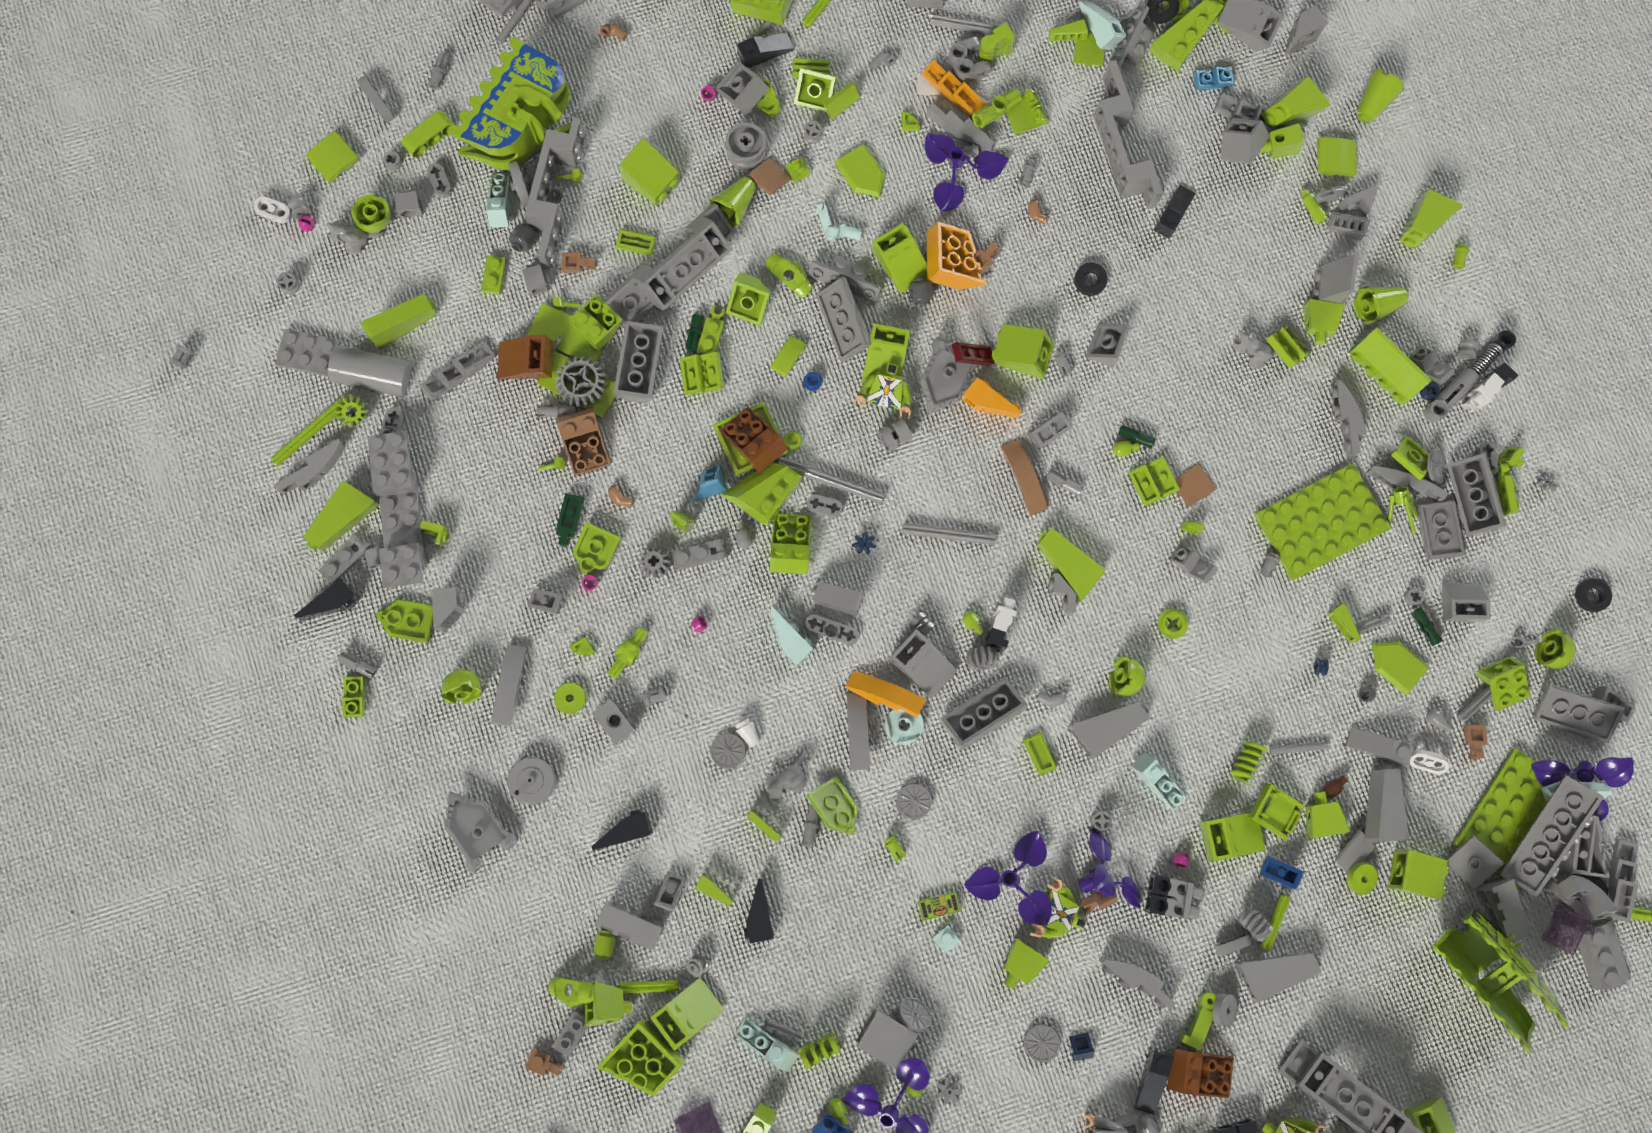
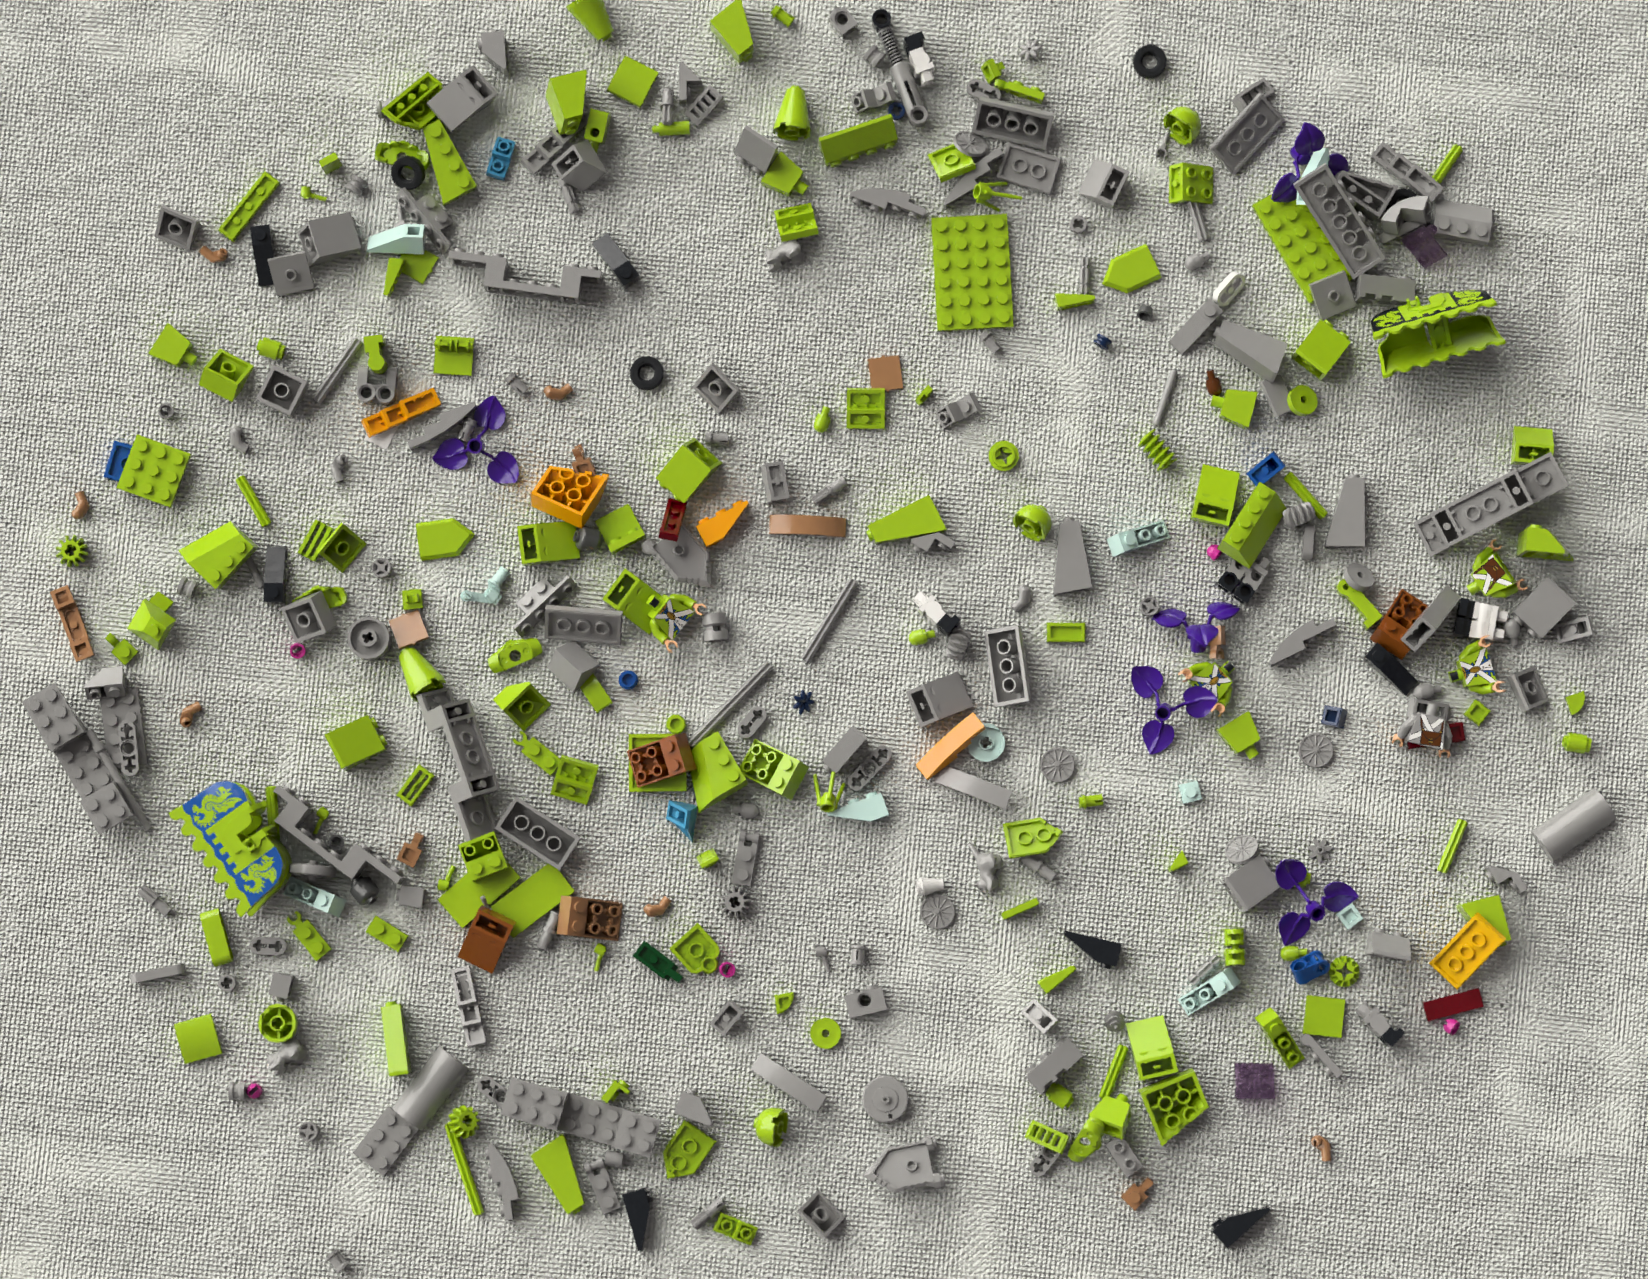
camera: 60 degrees left, 5 degrees up
(273, 211) = (227, 1117): white plate -> none
(396, 768) = (820, 1214): none -> light grey slope
(462, 211) = (309, 937): none -> lime plate
(534, 951) = (1037, 1160): none -> light grey beam
(559, 937) = (1036, 1131): none -> lime slope
(584, 367) = (545, 884): light grey gear -> none
(627, 653) = (807, 963): lime axle -> none
(628, 829) = (968, 1029): black slope -> none
(643, 662) = (821, 952): none -> light grey hand
(694, 332) = (531, 769): dark green axle -> none
(699, 624) = (810, 886): dark pink hinge -> none
(782, 603) = (828, 802): none -> lime plant
(803, 327) = (572, 665): none -> light grey slope
(841, 100) = (362, 526): lime tile -> none
(875, 959) = (1179, 862): none -> lime slope
(909, 122) = (412, 470): lime tile -> none
(922, 623) = (901, 683): flat silver wheel -> none
(939, 906) = (1158, 785): tile -> none
(942, 316) = (620, 529): none -> lime bracket
(997, 107) = (439, 373): lime piece -> none
(1136, 436) = (816, 404): dark green axle -> none
(1210, 148) = (569, 197): none -> light grey axle
(1222, 1100) = (1431, 618): none -> light grey slope
(1224, 884) = (1253, 525): none -> lime slope
(1278, 812) = (1213, 445): lime container -> none
(1426, 626) = (1109, 228): dark green pin -> none
(1476, 738) = (1227, 235): medium nougat plate -> none
(1478, 314) = (846, 29): none -> light grey brick

